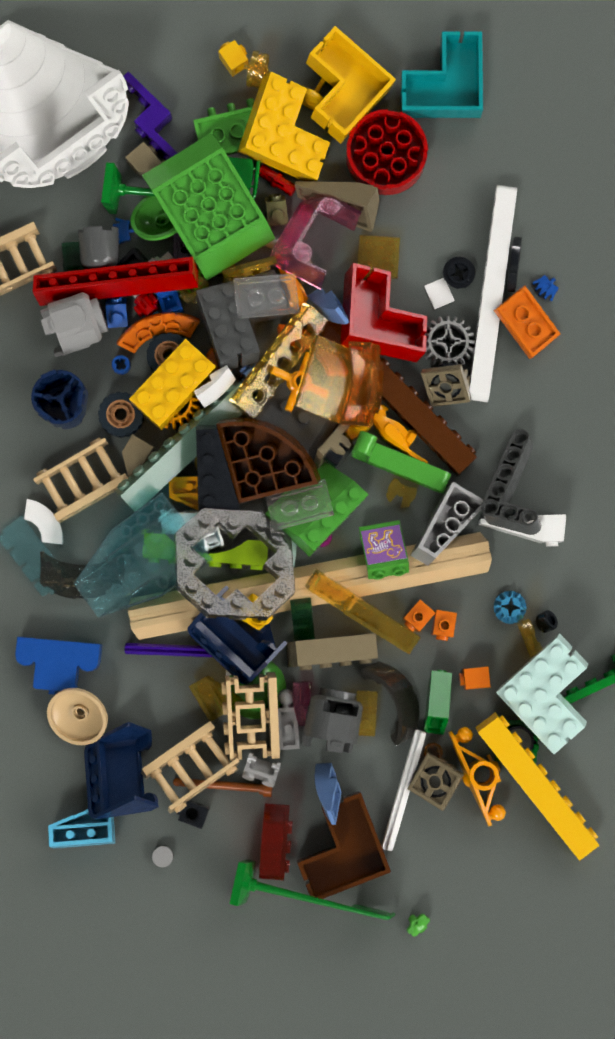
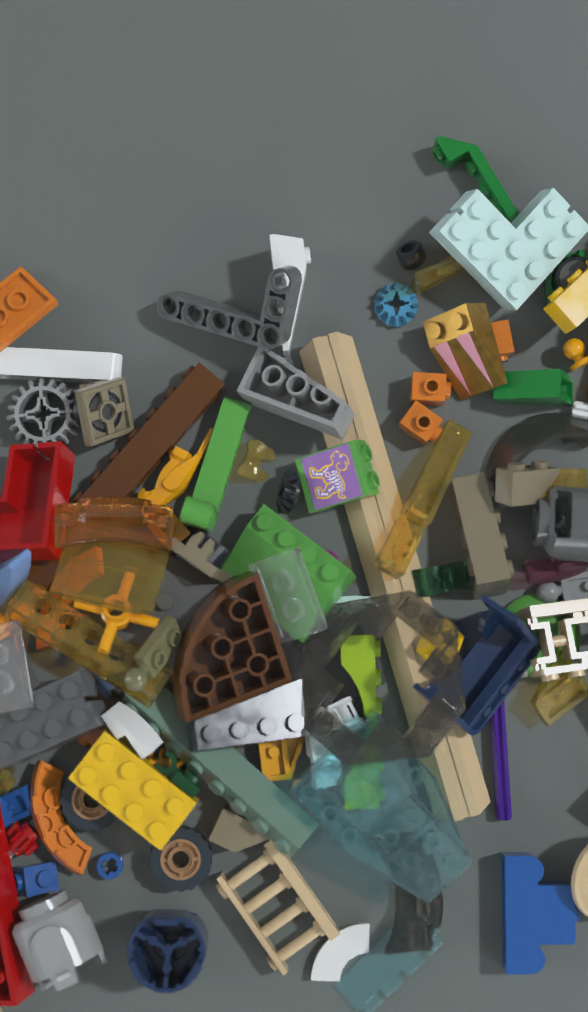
camera: 90 degrees left, 0 degrees up
(175, 422) = (183, 779): none -> dark green plate
(267, 405) = (154, 653): none -> olive plate
(366, 684) = (523, 483): none -> dark tan slope
(375, 513) = (288, 492): none -> black gear
(470, 653) = (466, 349): none -> pearl gold slope

